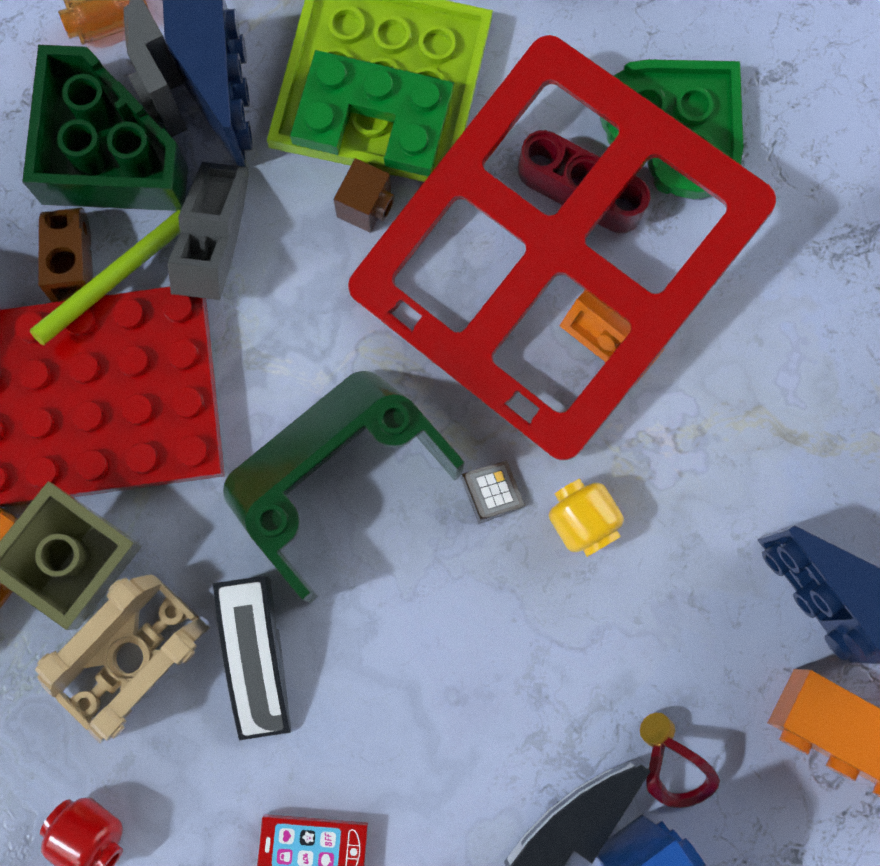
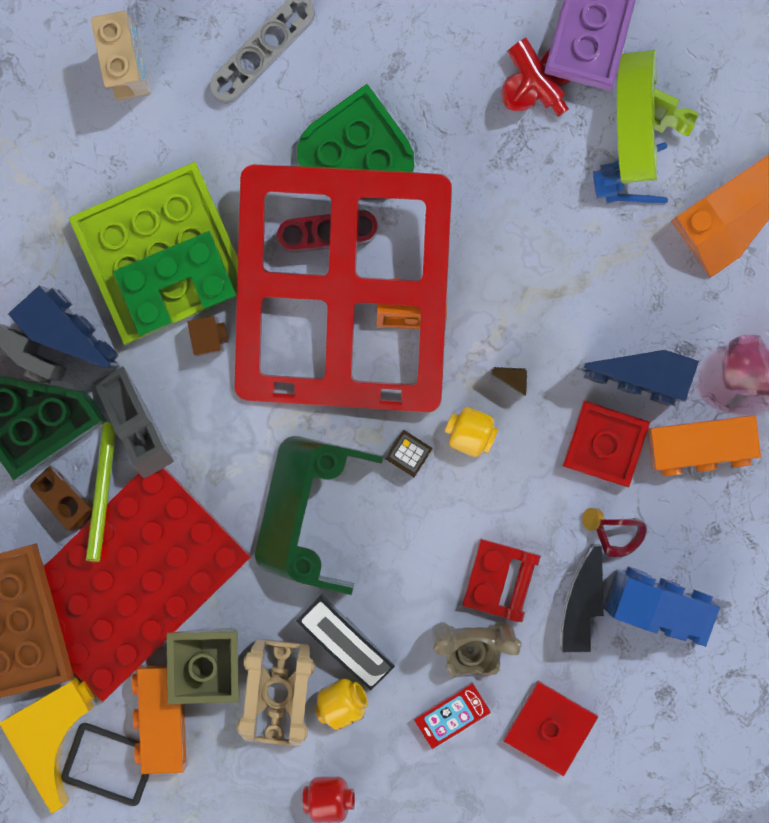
camera: 30 degrees left, 10 degrees up
(190, 729) = (341, 704): none -> yellow head
(420, 786) = (487, 646): none -> dark tan hair
(481, 709) = (489, 578): none -> red plate
(677, 490) = (513, 377): none -> dark brown slope
(736, 651) = (606, 444): none -> red plate

